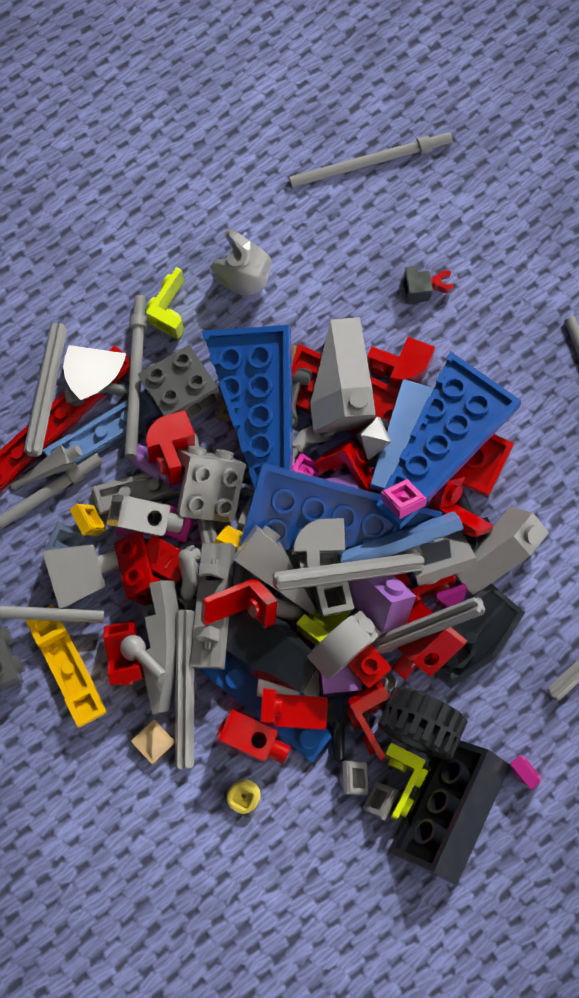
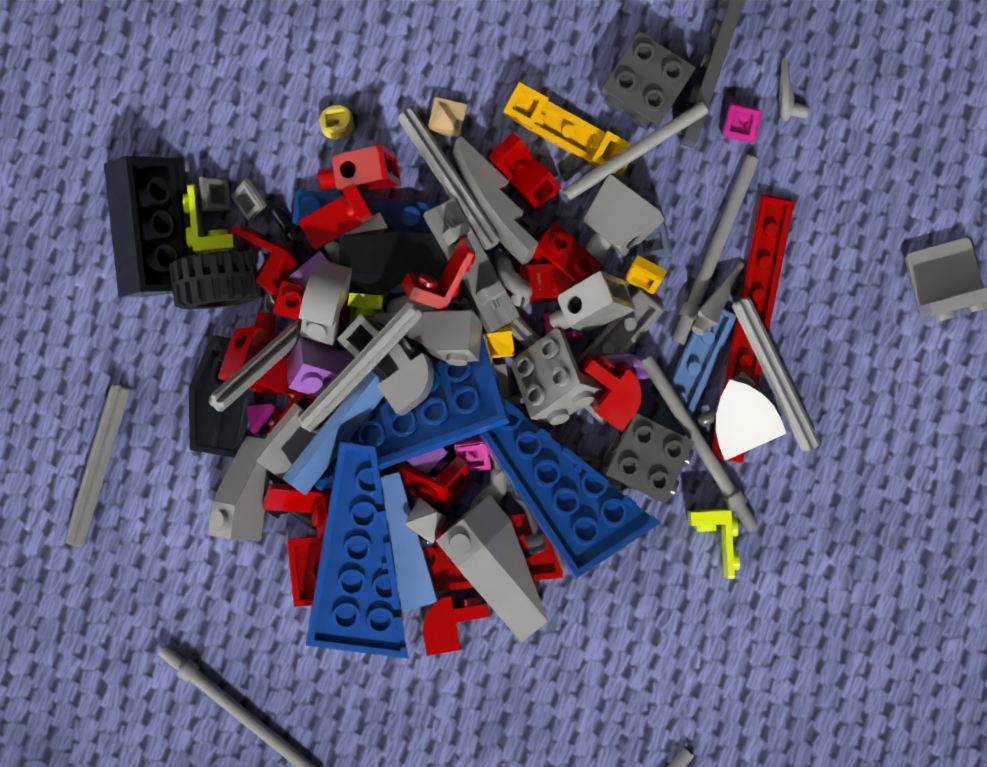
camera: 145 degrees right, 15 degrees up
(134, 649) = (515, 178): light grey bar -> none
(245, 268) = (665, 618): light grey helmet -> none
(403, 498) = (351, 466): dark pink tile -> none
(419, 285) = (484, 717): pearl dark grey piece -> none
(525, 772) = (102, 301): dark pink tile -> none

